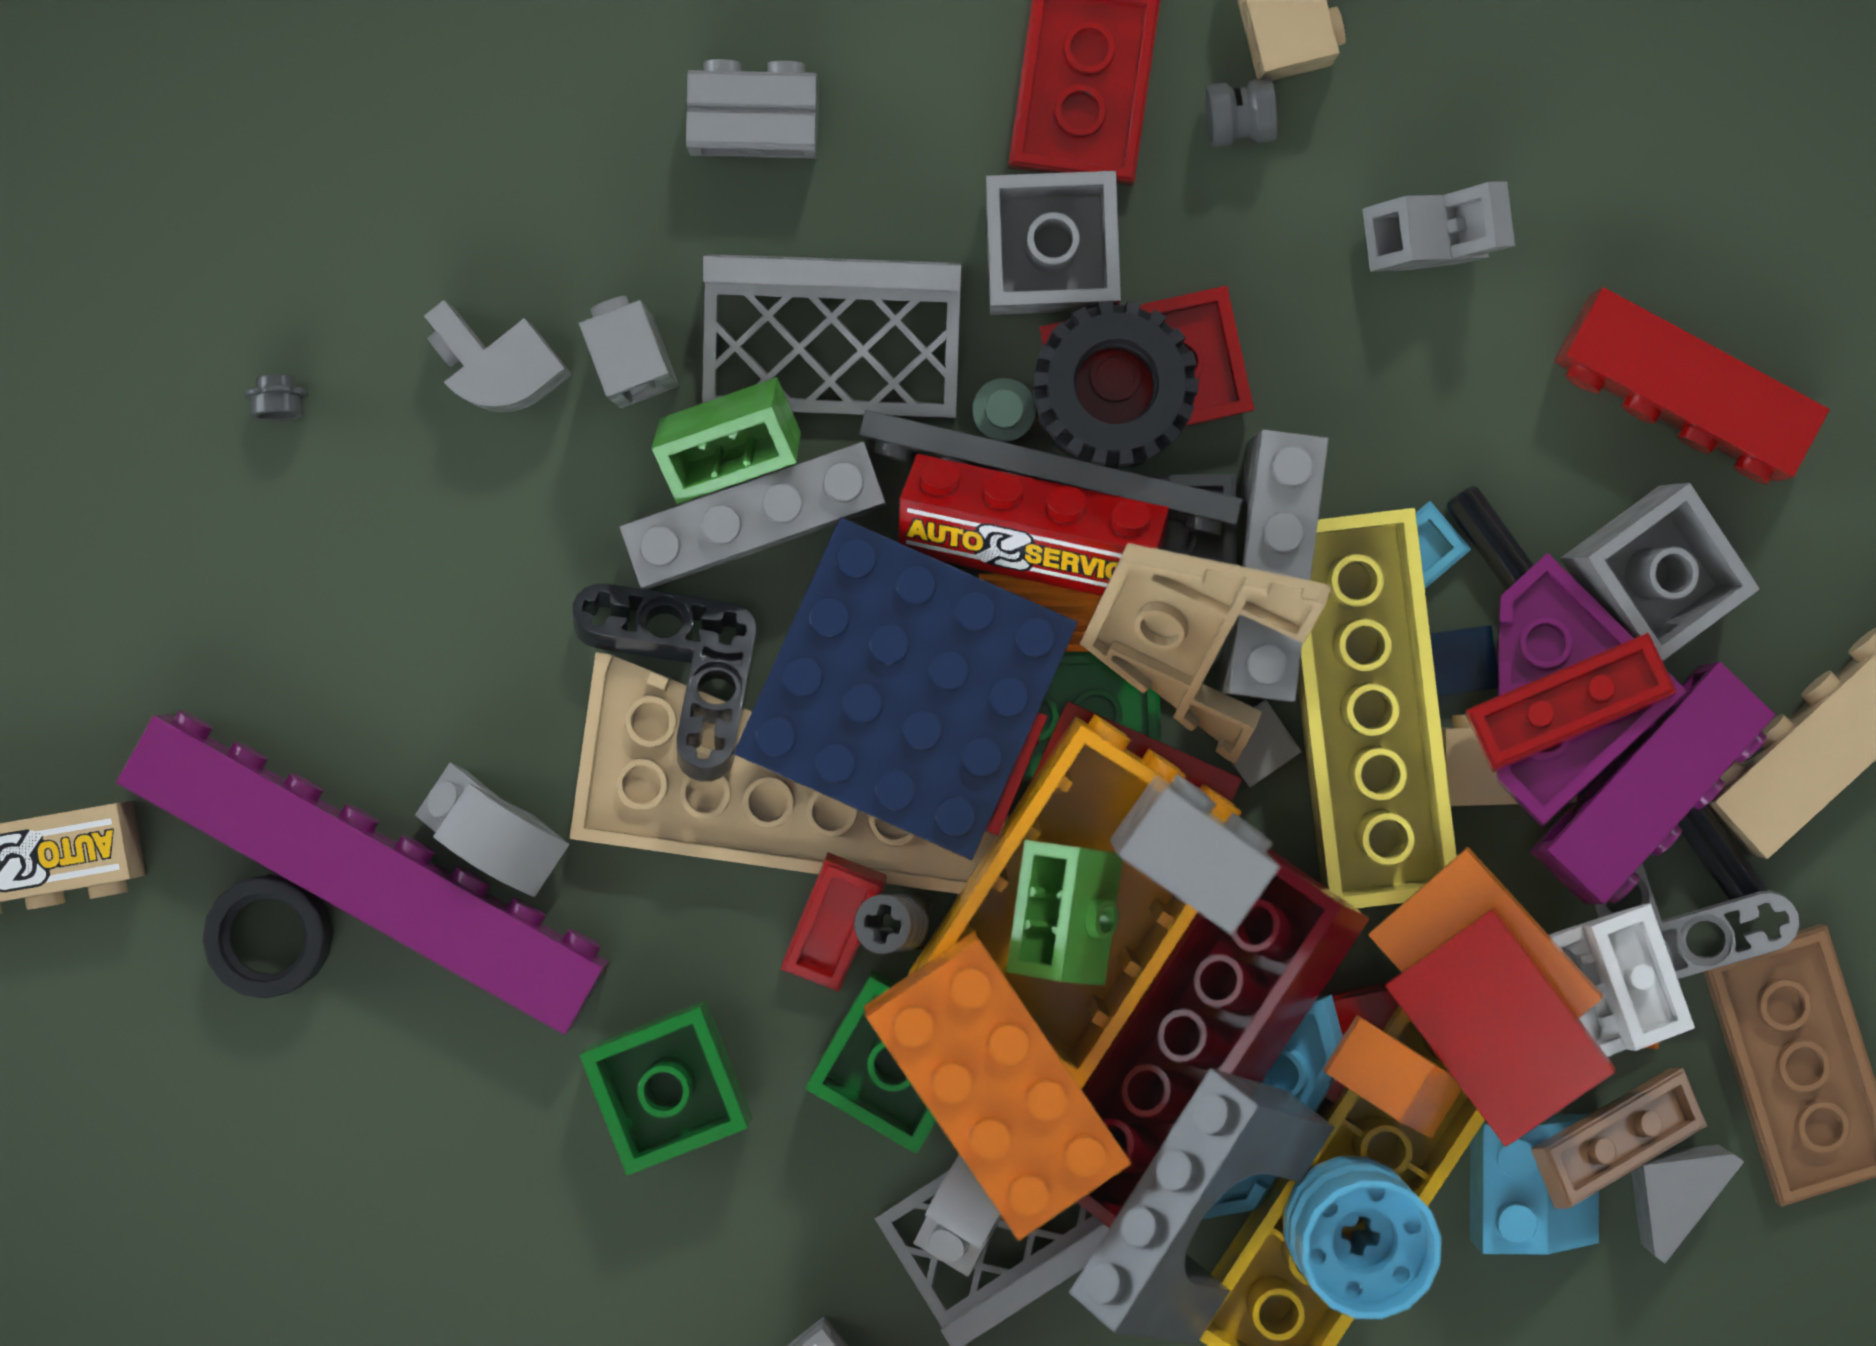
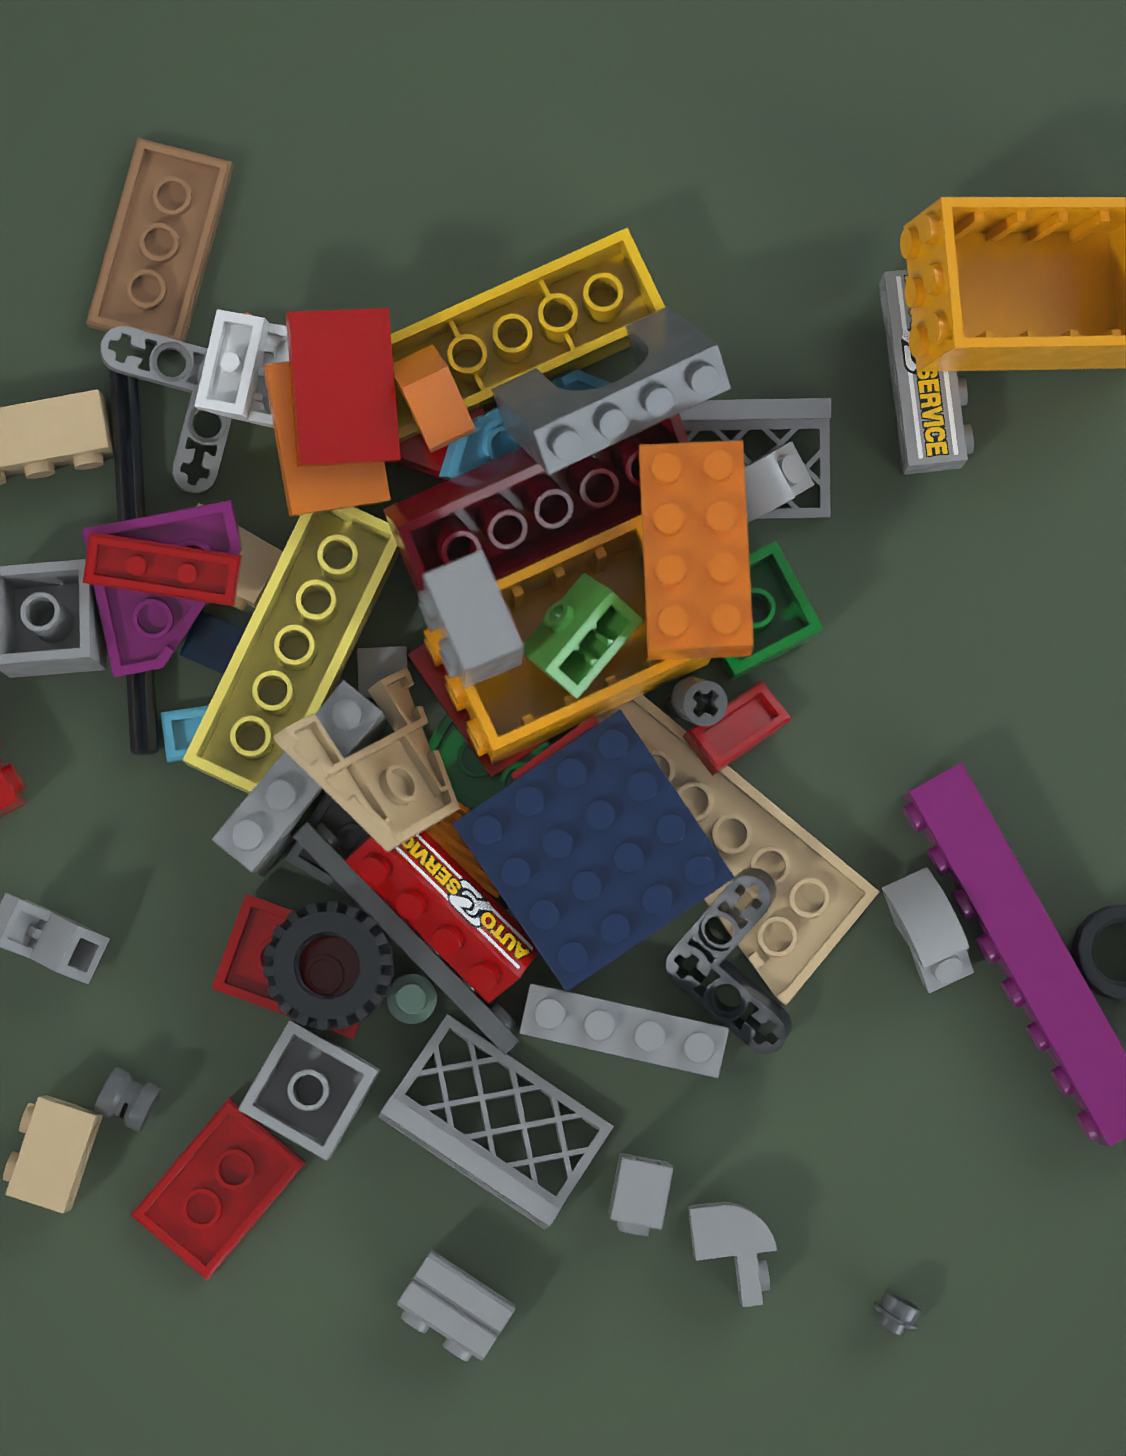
camera: 150 degrees left, 5 degrees down
(666, 1087) = (915, 686): green brick -> none
(726, 441) = (610, 1091): bright green brick -> none
(1378, 1267) = (518, 281): medium azure wheel -> none
(1511, 1202) = (383, 268): medium azure slope -> none
(1618, 1138) = (309, 269): medium nougat tile -> none
(1653, 785) = (141, 482): magenta brick -> none
(1677, 1191) = (293, 213): light grey slope -> none

